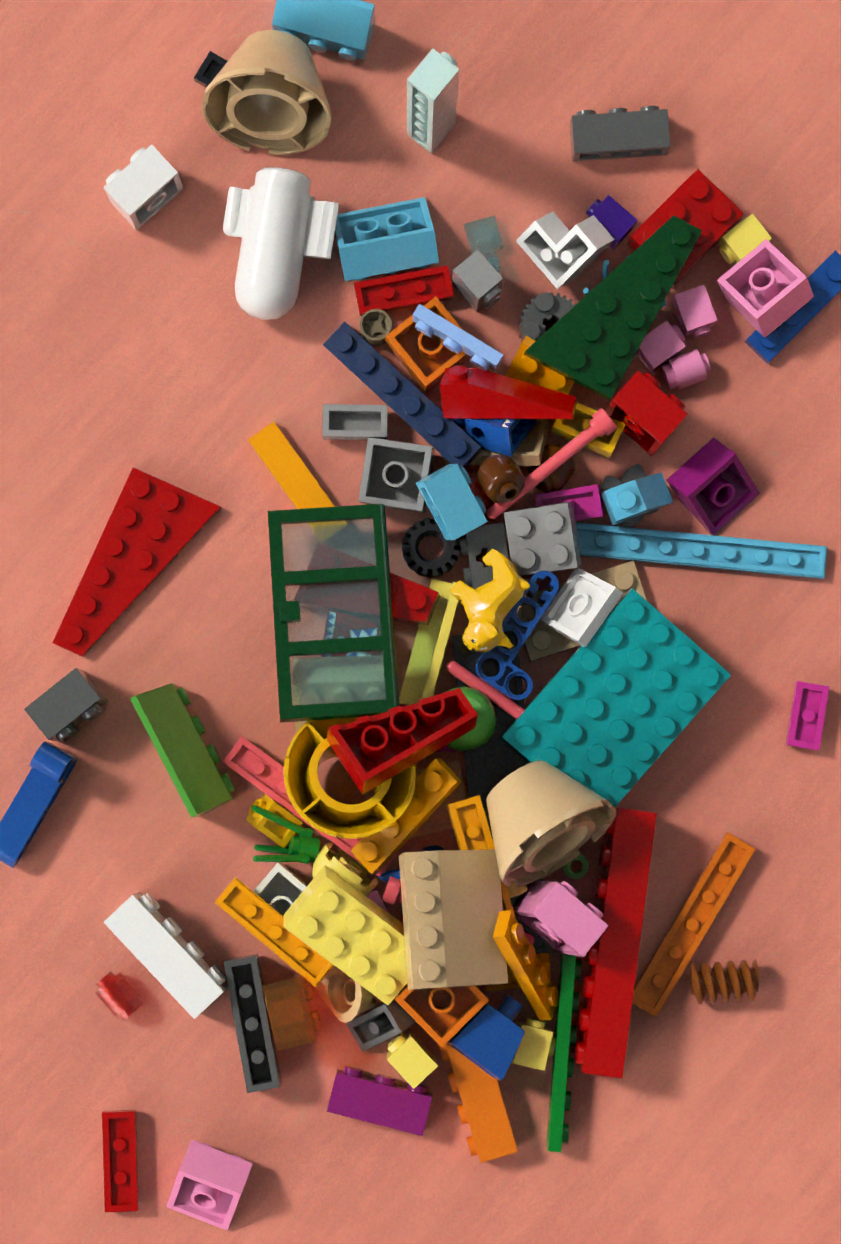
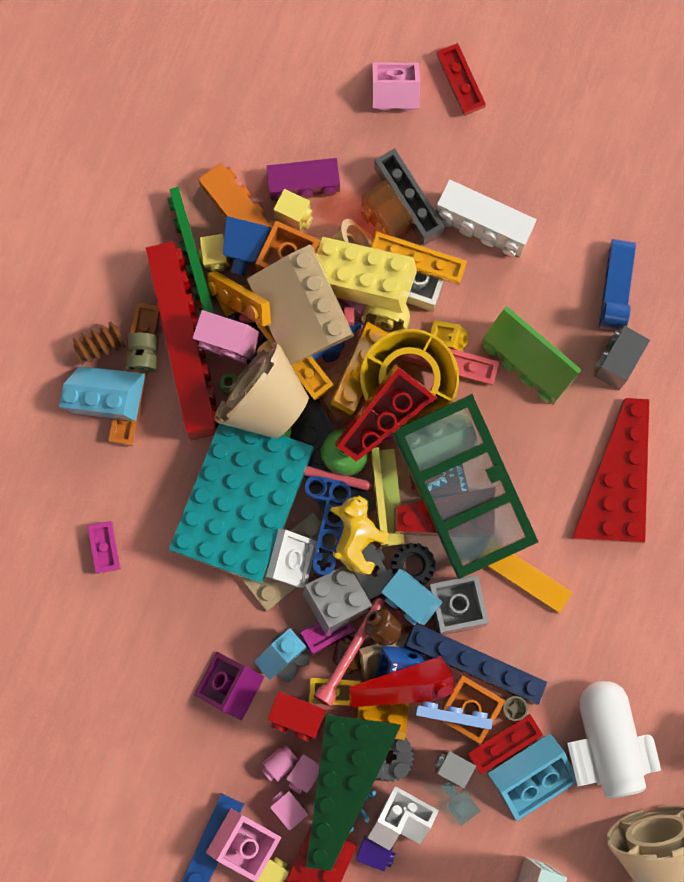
camera: 165 degrees right, 5 degrees down
(118, 995) = (506, 183): clear red brick -> none
(300, 849) = (424, 323): green plant -> none
(354, 422) = (502, 633): light grey piece -> none
(379, 1024) = (323, 225): dark grey slope -> none
(673, 956) = (142, 344): none -> olive wheel
(702, 551) = (220, 637): medium azure tile -> none
(741, 912) = (103, 393): none -> medium azure slope

